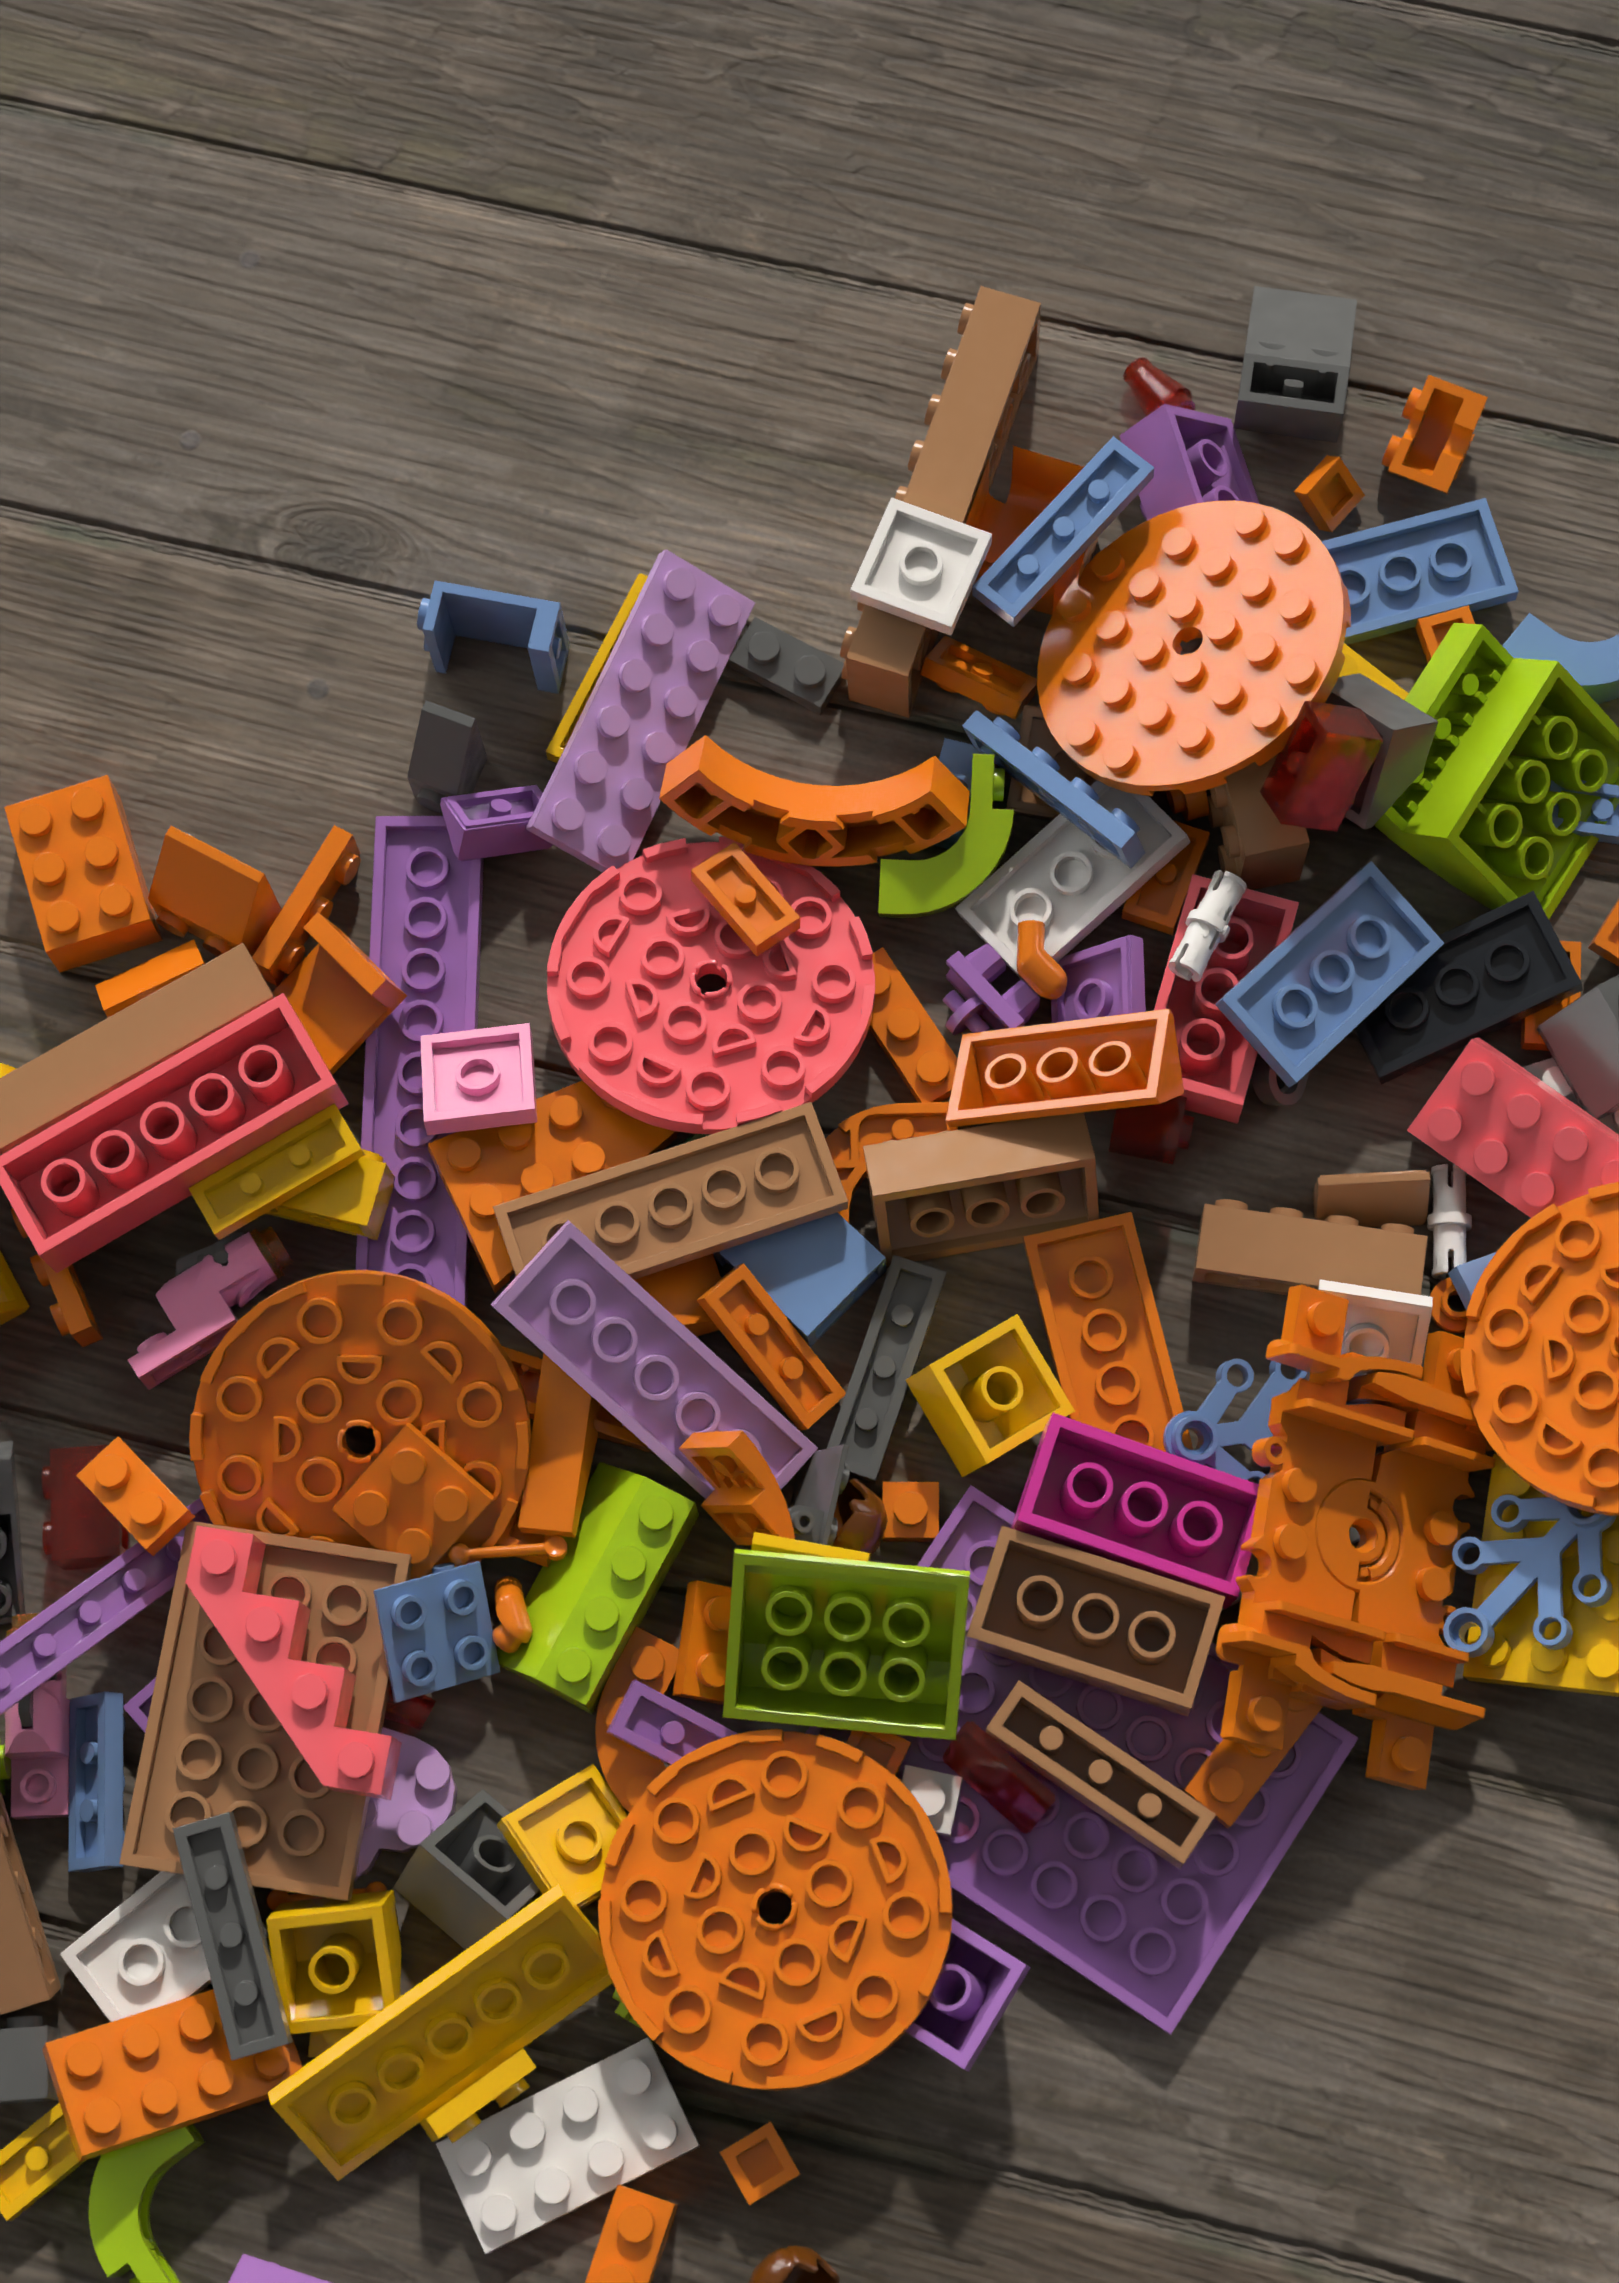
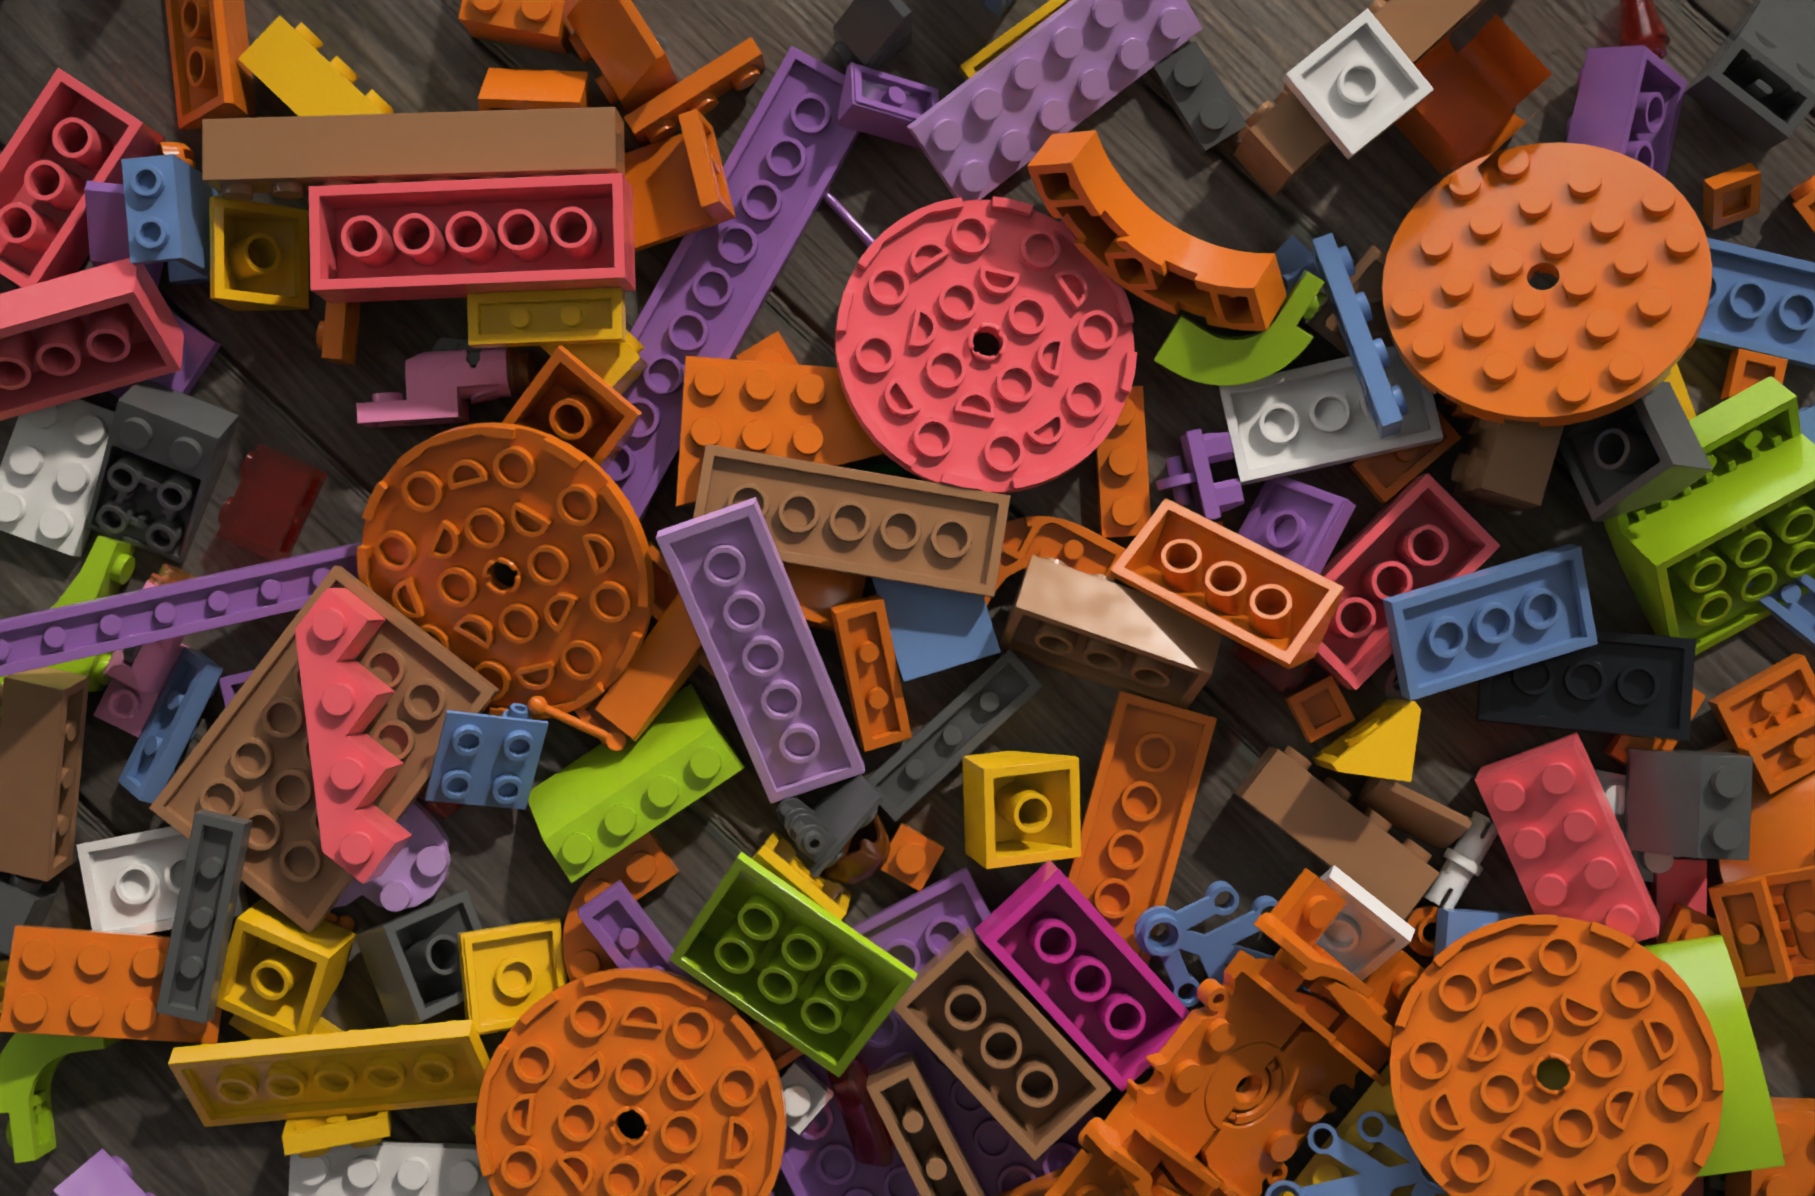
camera: 25 degrees right, 15 degrees up
(135, 1496) = (302, 523): orange plate -> none
(351, 1232) = (576, 408): none -> orange slope
(413, 1500) = (521, 646): orange plate -> none
(478, 1079) = (753, 325): bright pink plate -> none
(513, 1615) = (555, 771): orange arm -> none
(514, 946) = (848, 219): none -> medium lavender hinge
(703, 1643) = (696, 875): orange plate -> none
(745, 899) = (1052, 290): orange plate -> none
(745, 1489) = (780, 786): orange slope -> none
(979, 677) = (1350, 198): orange plate -> none
(1035, 964) = (1256, 473): orange arm -> none
(1063, 531) = (1495, 117): medium blue plate -> none
(1207, 926) = (1415, 528): white pin -> none
(1225, 1152) = (1319, 708): none -> orange plate
(1298, 1153) = (1377, 744): none -> yellow slope
(1321, 766) = (1592, 456): clear red brick -> none

